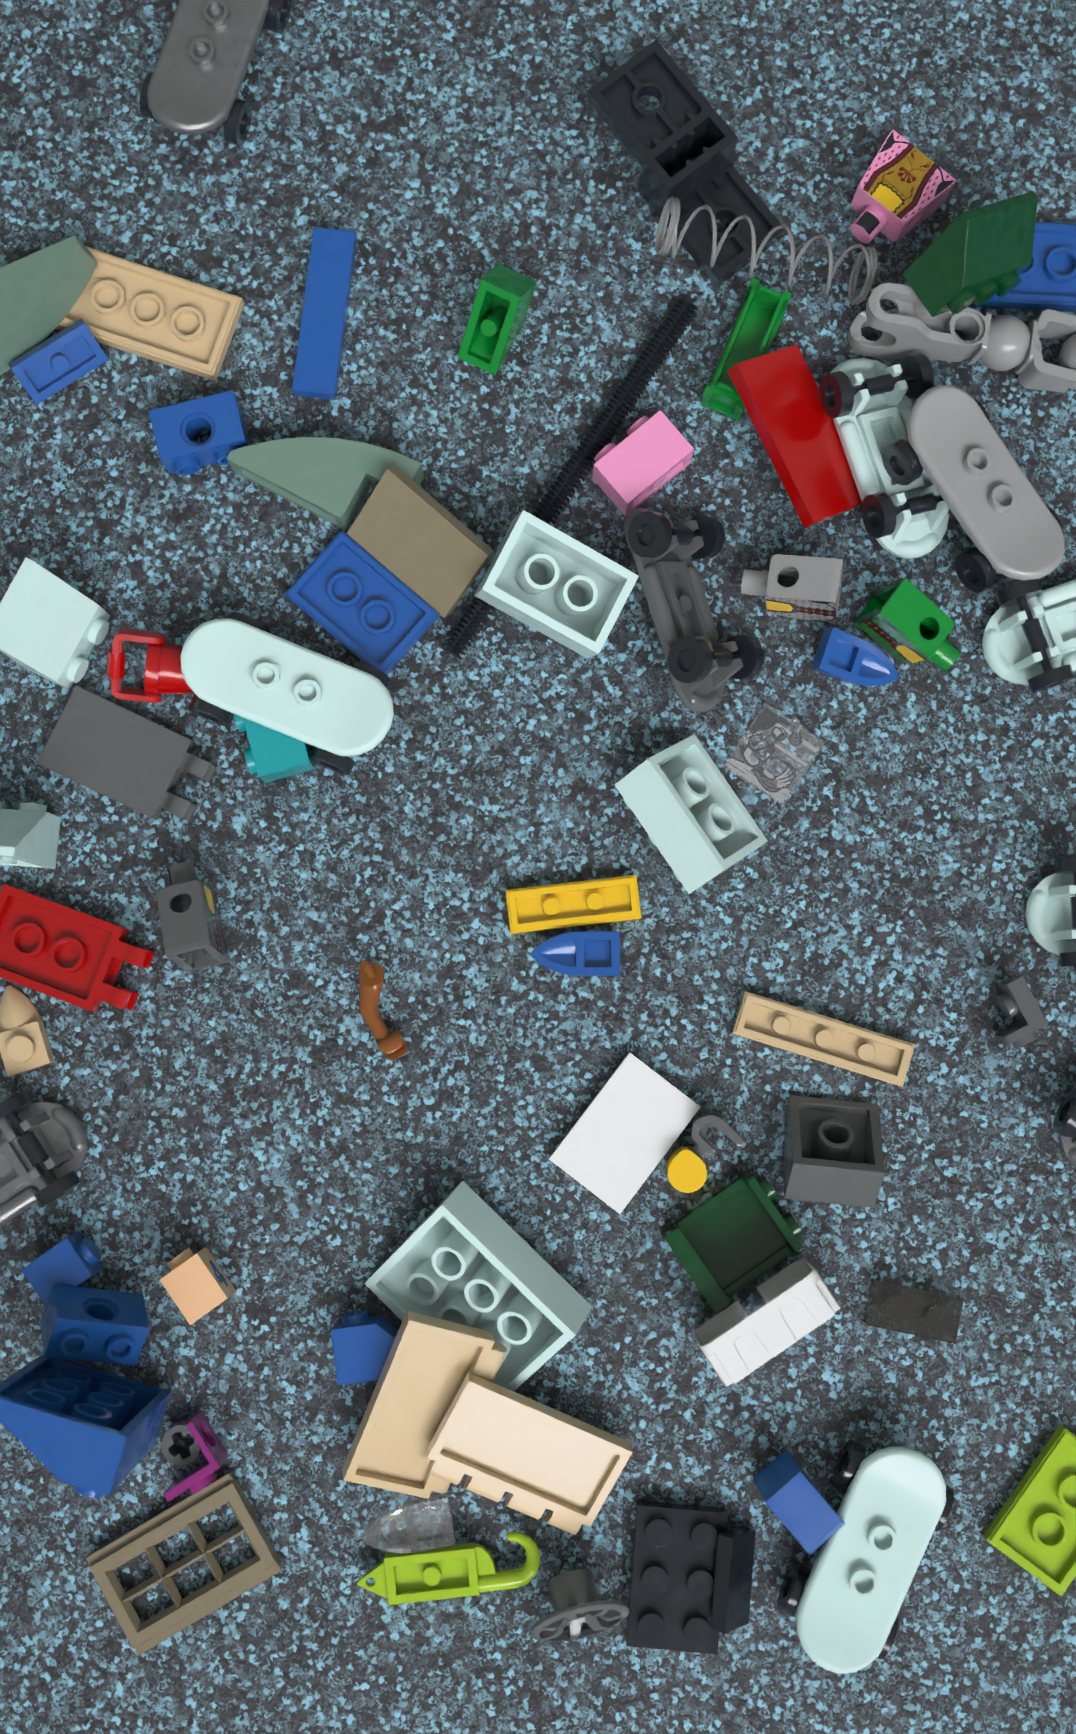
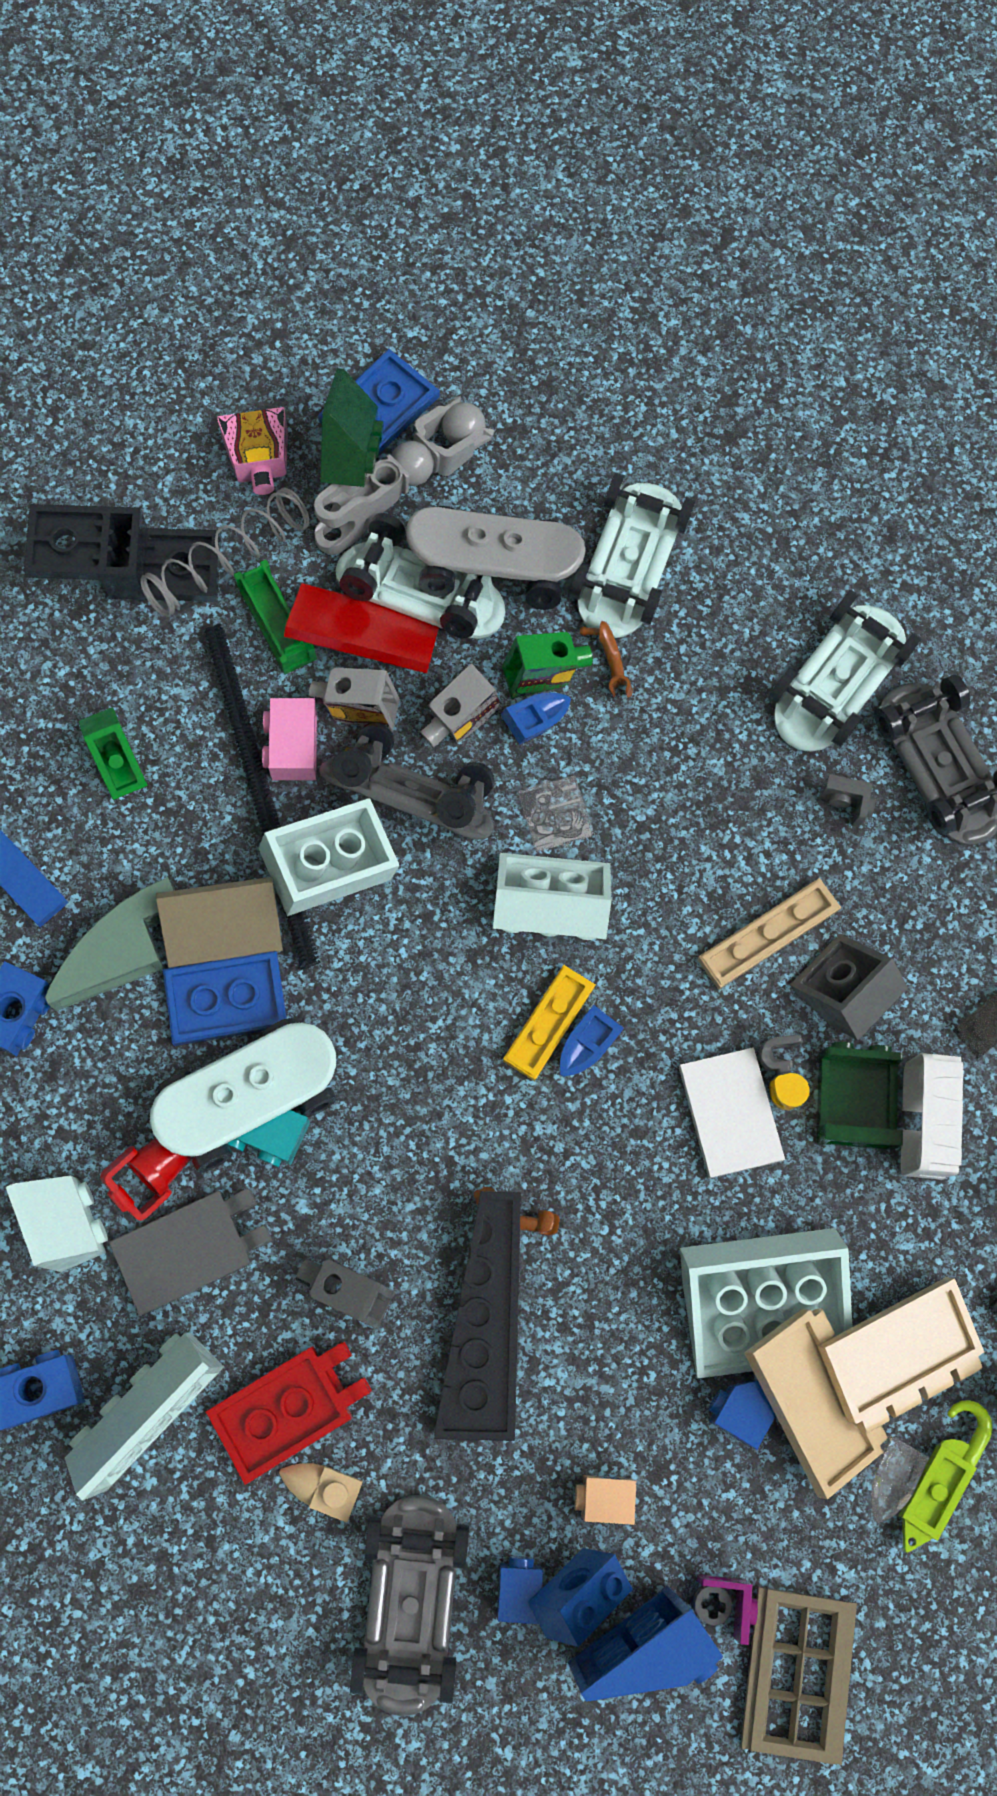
camera: 60 degrees left, 10 degrees down
(233, 1080) = (482, 1359): none -> black wing
(730, 487) = (358, 696): none -> light grey torso
(975, 680) = (612, 655): none -> dark orange piece

